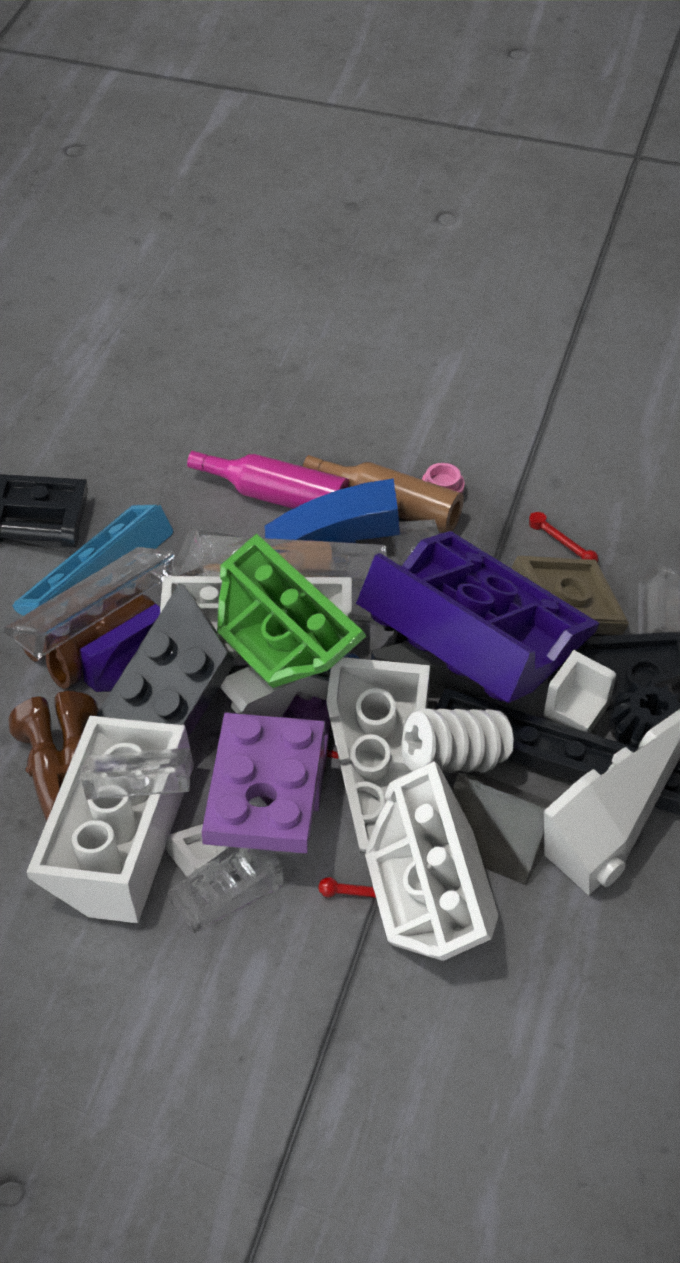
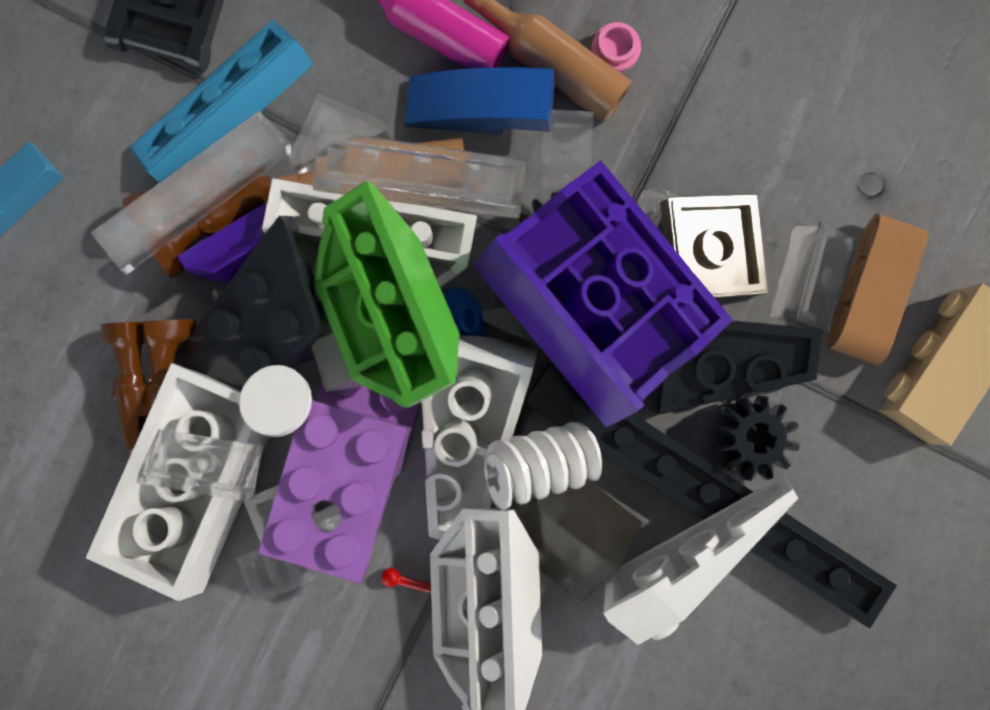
camera: 15 degrees right, 40 degrees up
(198, 715) = (275, 401): none -> white piece
(538, 521) = (709, 117): red hinge -> none
(579, 693) = (685, 409): white panel -> none

